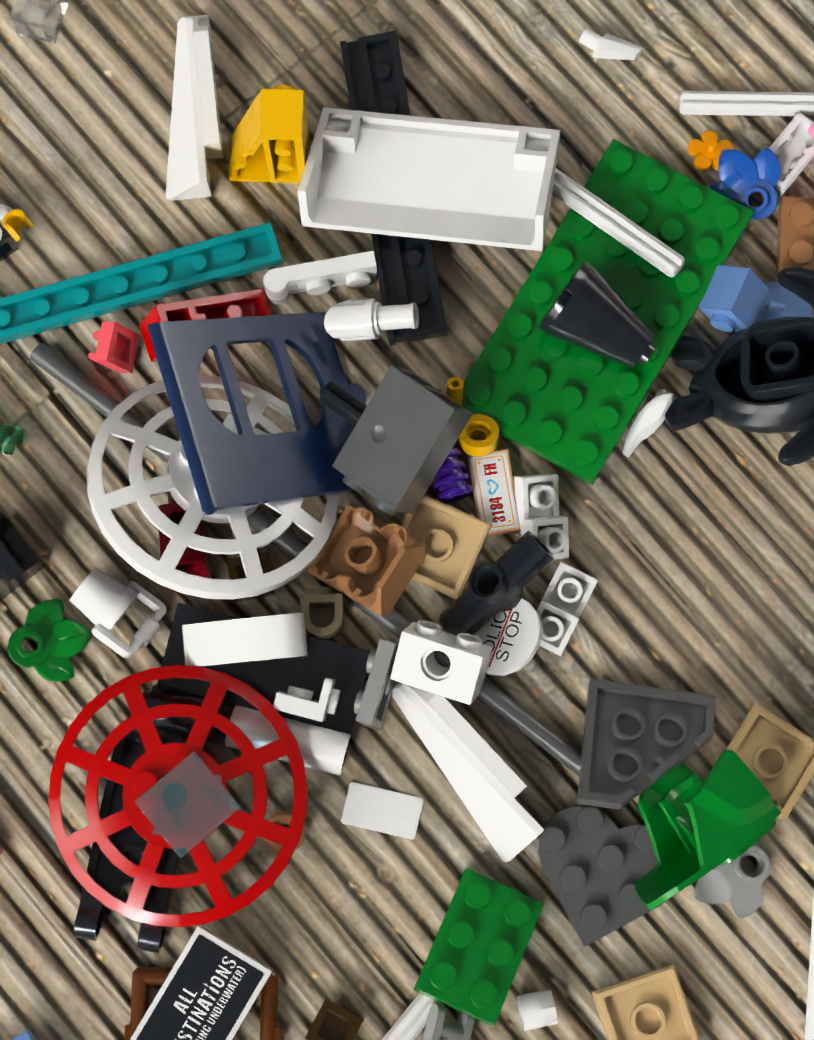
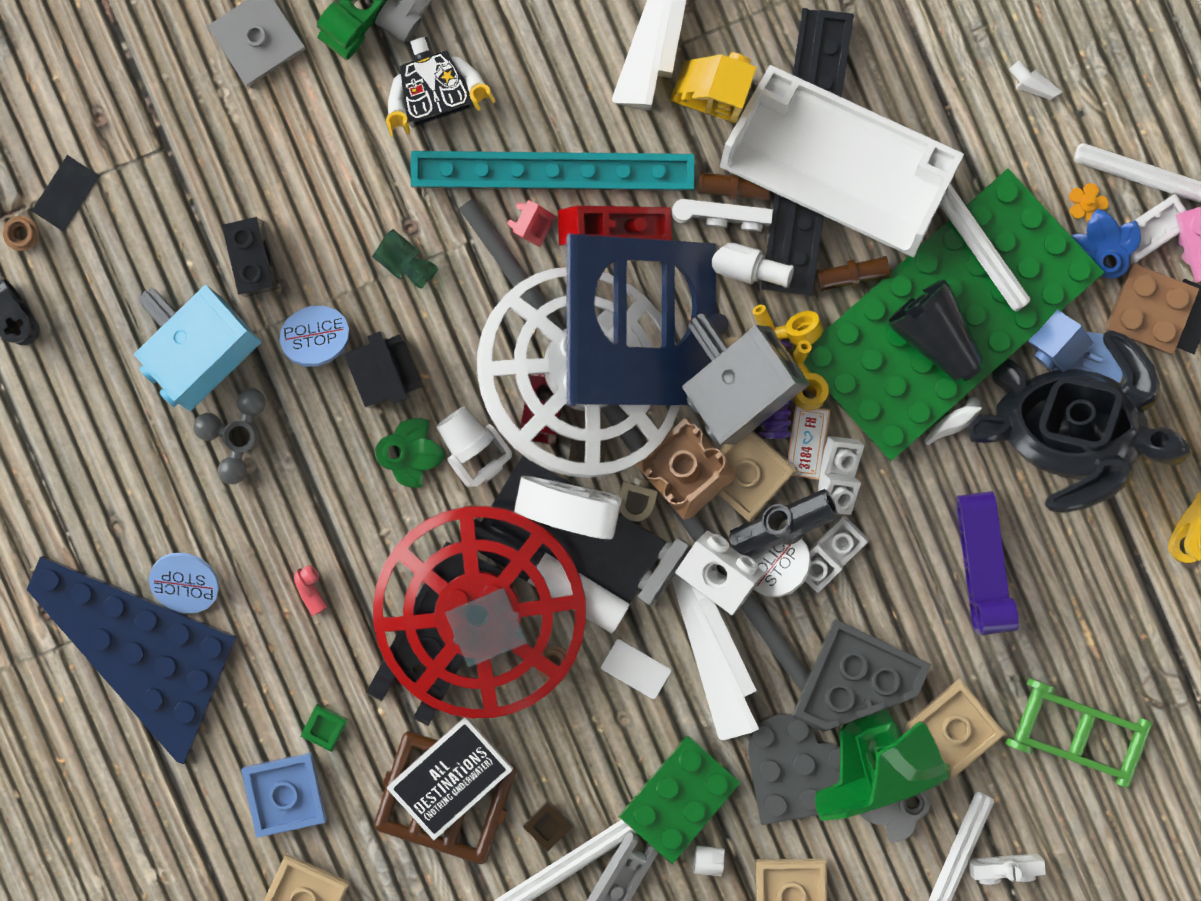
camera: 20 degrees right, 10 degrees up
(36, 995) = (324, 727): none -> green tile
(300, 701) = (597, 569): white bracket -> none
(323, 245) = (731, 186): none -> reddish brown pin
(448, 365) = (799, 327): none -> yellow plate
(484, 296) = (853, 273): none -> reddish brown pin
(736, 564) = (984, 565): none -> dark purple beam

